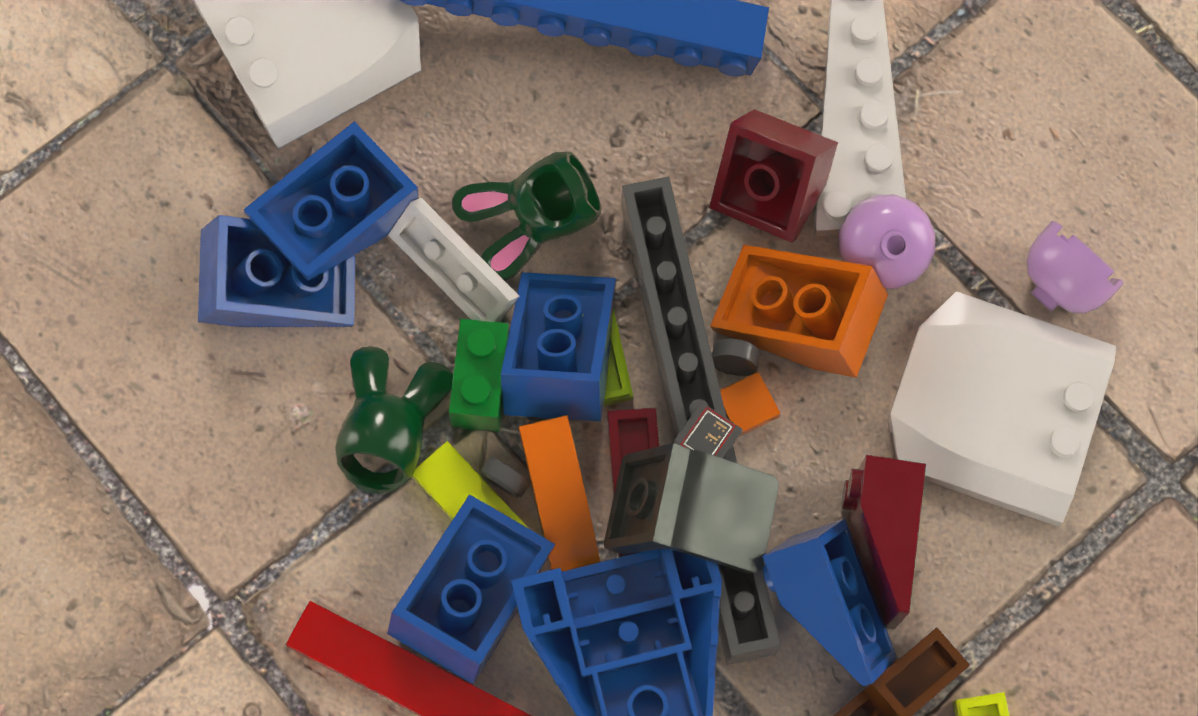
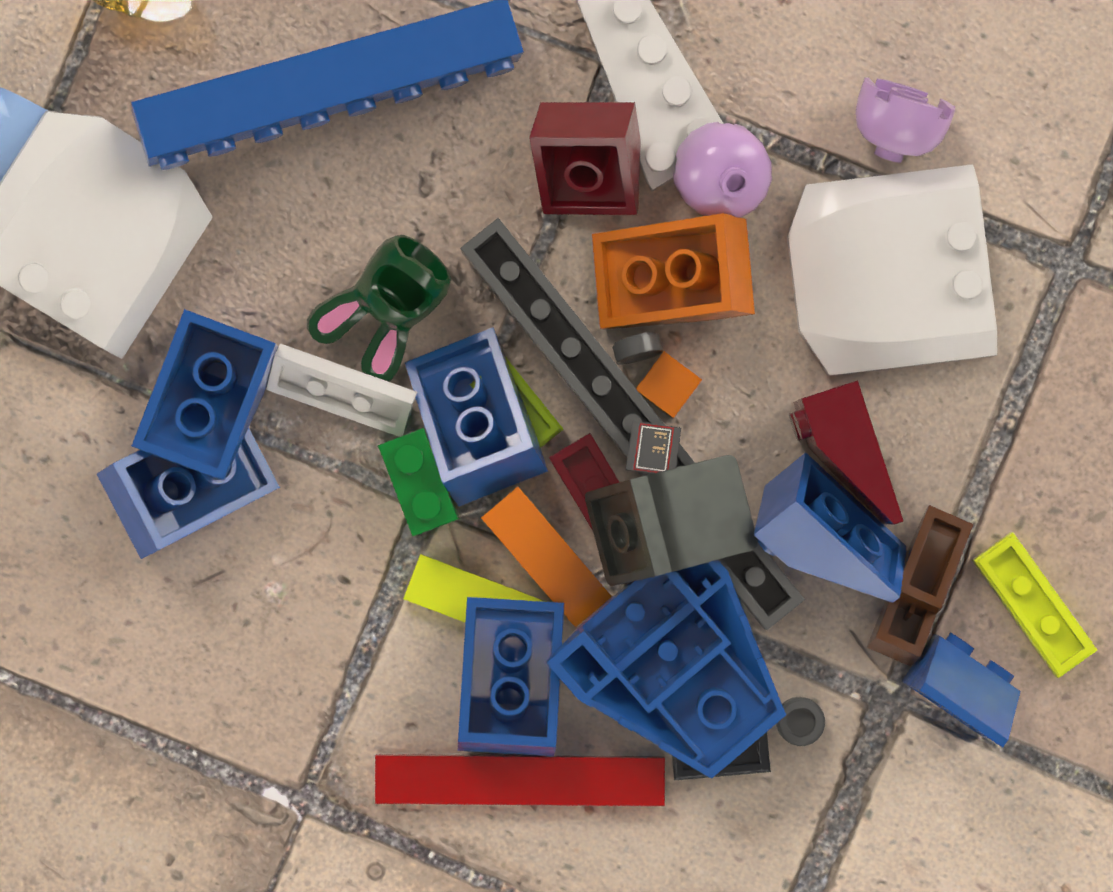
camera: 20 degrees left, 15 degrees up
(387, 423) = (361, 574): dark green piece -> none
(505, 477) = (488, 562): dark grey tile -> none

